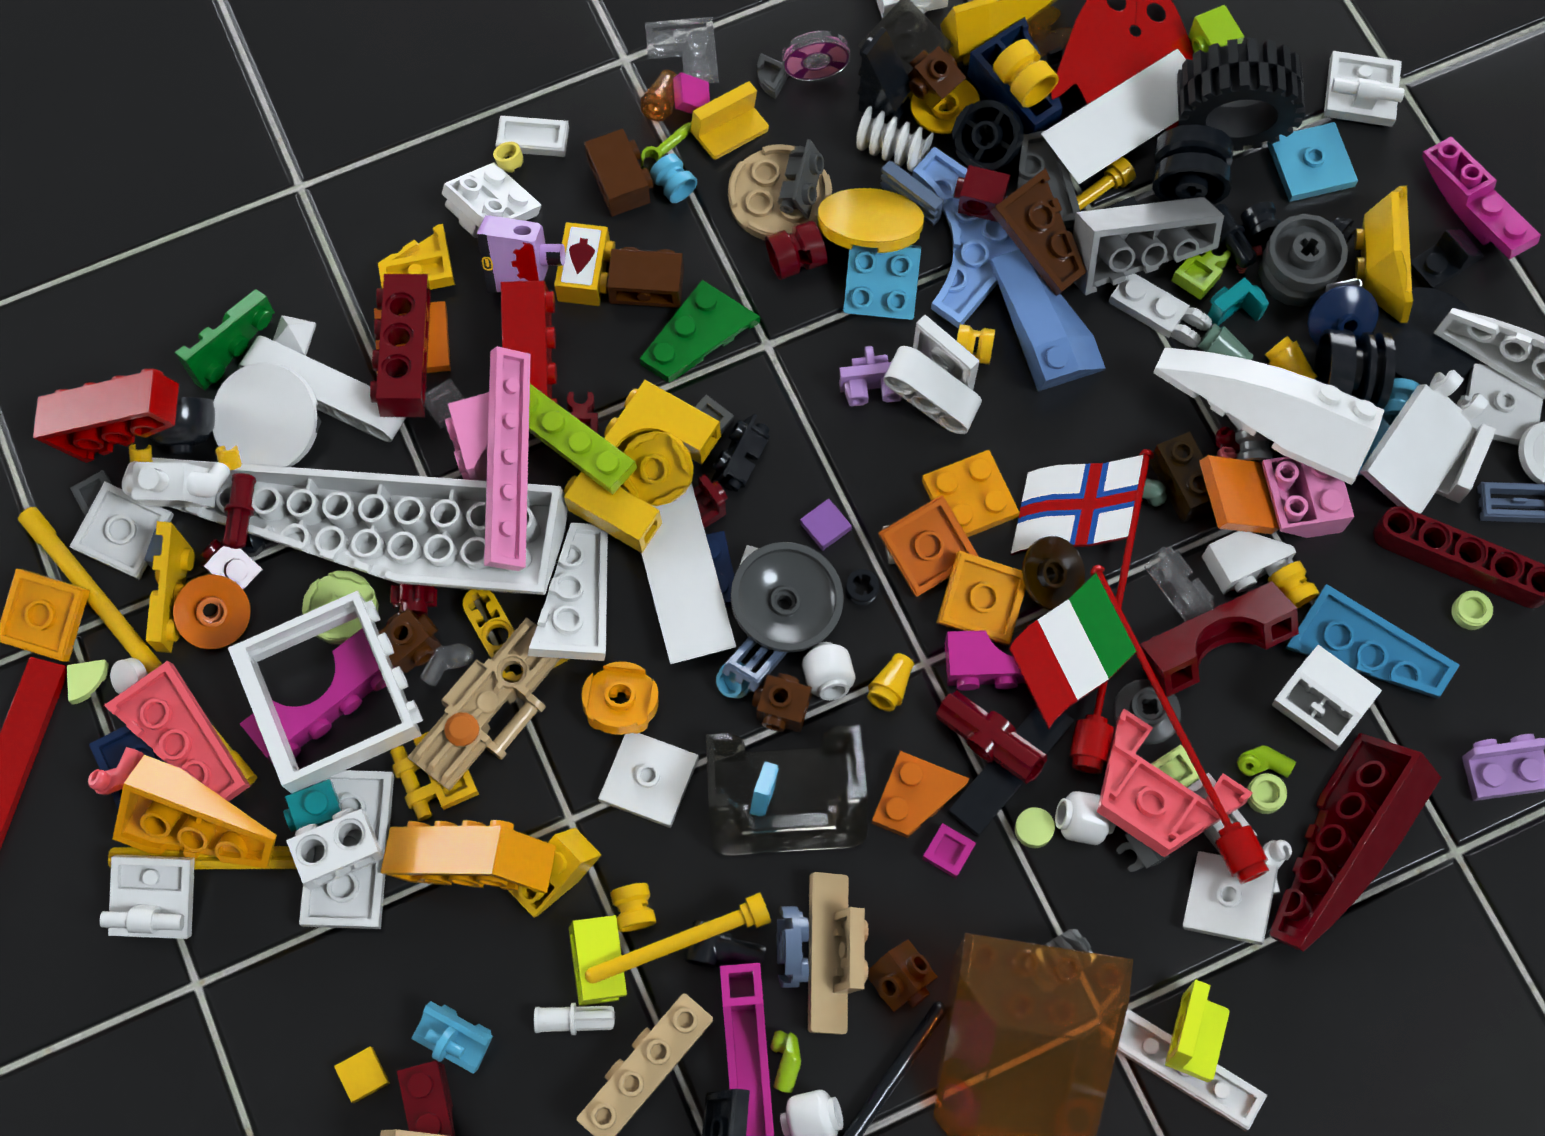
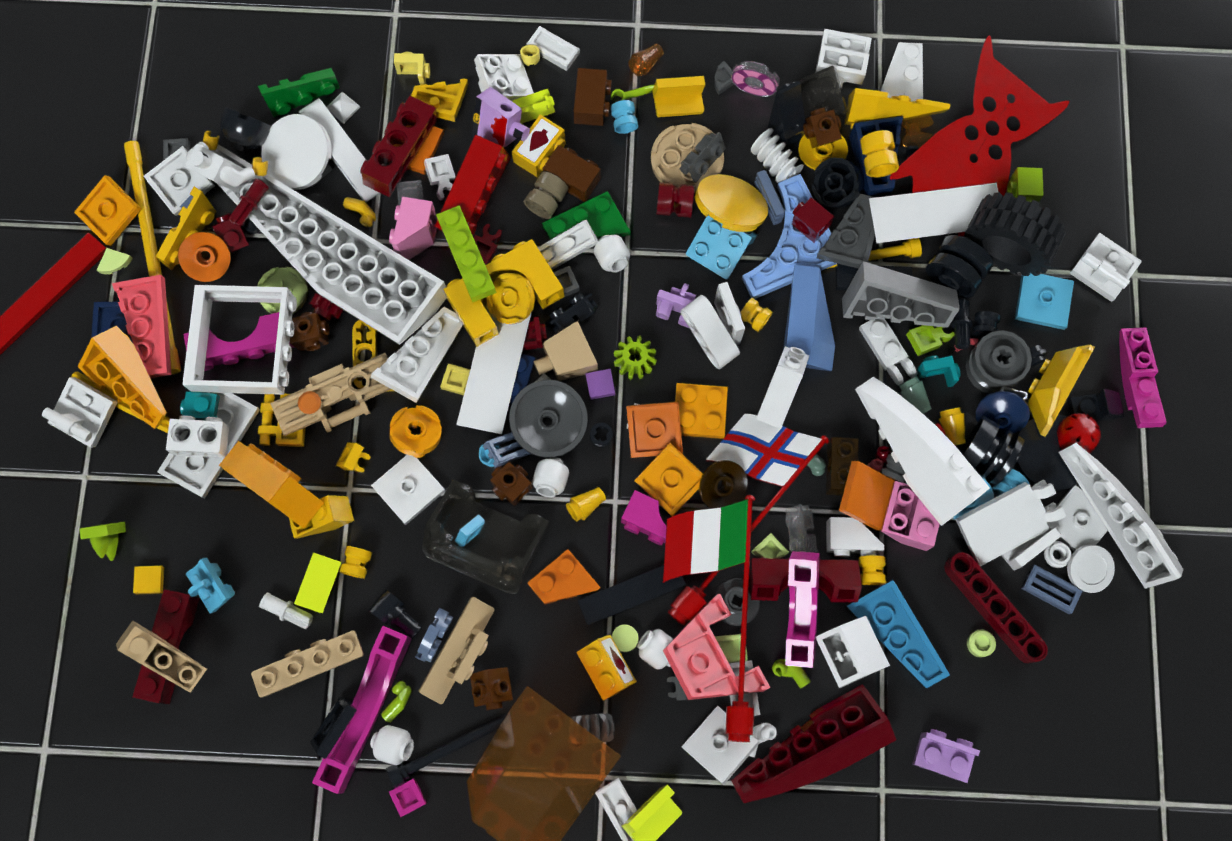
camera: 25 degrees right, 5 degrees up
(106, 413) = (198, 104): wedge -> none
(112, 780) = (90, 330): coral arm -> none
(126, 673) = (137, 270): white tile -> none
(275, 1047) = (104, 538): none -> lime tile
(359, 237) = (412, 64): none -> light yellow bracket
(392, 449) = (360, 206): none -> yellow arm
(446, 658) = (326, 353): clear arm -> none
(470, 356) = (440, 172): none -> white plate
(507, 459) = (418, 249): bright pink plate -> none
(551, 774) = (350, 457): none -> yellow tile
(553, 213) = (534, 105): none -> neon yellow hinge
(628, 320) = (548, 192): none -> dark tan wheel
(635, 609) = (455, 379): none -> light yellow tile
(685, 38) = (684, 34): clear plate -> none
(690, 92) = (664, 66): dark pink tile -> none
(693, 365) = (568, 244): none -> white tile
(750, 913) = (420, 603): yellow piece -> none
(751, 353) = (612, 253): none -> white head
(765, 506) = (567, 354): none -> tan torso
(839, 465) = (635, 348): none -> lime gear
(949, 850) = (564, 625): dark pink tile -> none
(991, 736) = (626, 569): dark red piece -> none
(1034, 873) = (606, 667): none -> yellow brick
(1036, 227) = (833, 260): reddish brown wing -> none
(1064, 411) = (783, 386): none -> white window
(1153, 622) = (770, 548): none -> yellowish green tile
(1239, 672) = (803, 609): none -> dark pink arch
(1268, 793) = (781, 691): yellowish green tile -> none
(1446, 289) = (1082, 428): none -> red helmet
(1506, 449) = (1064, 551): none -> white plate

